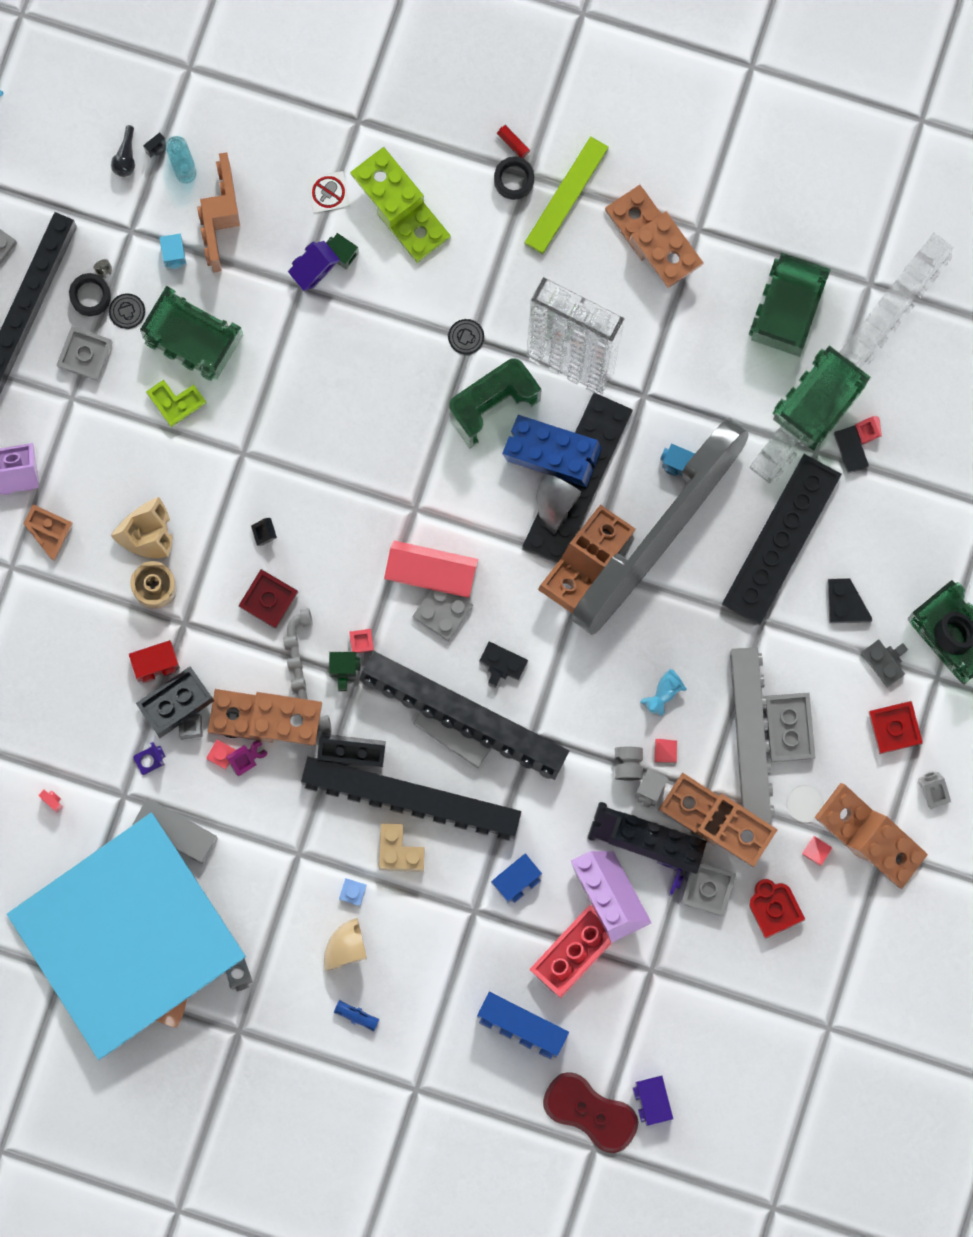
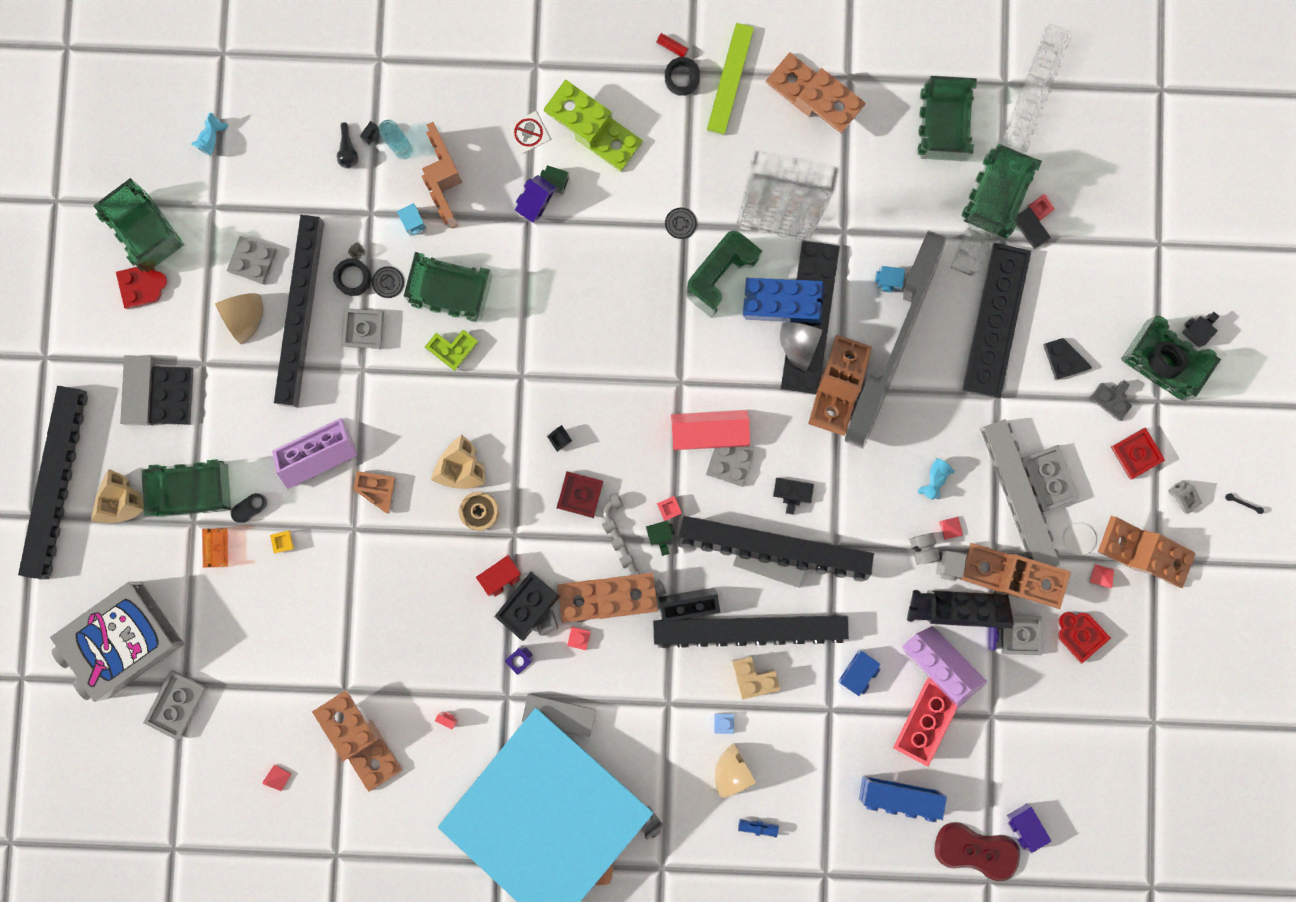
camera: 15 degrees left, 5 degrees up
(243, 758) = (599, 637): magenta plate -> none

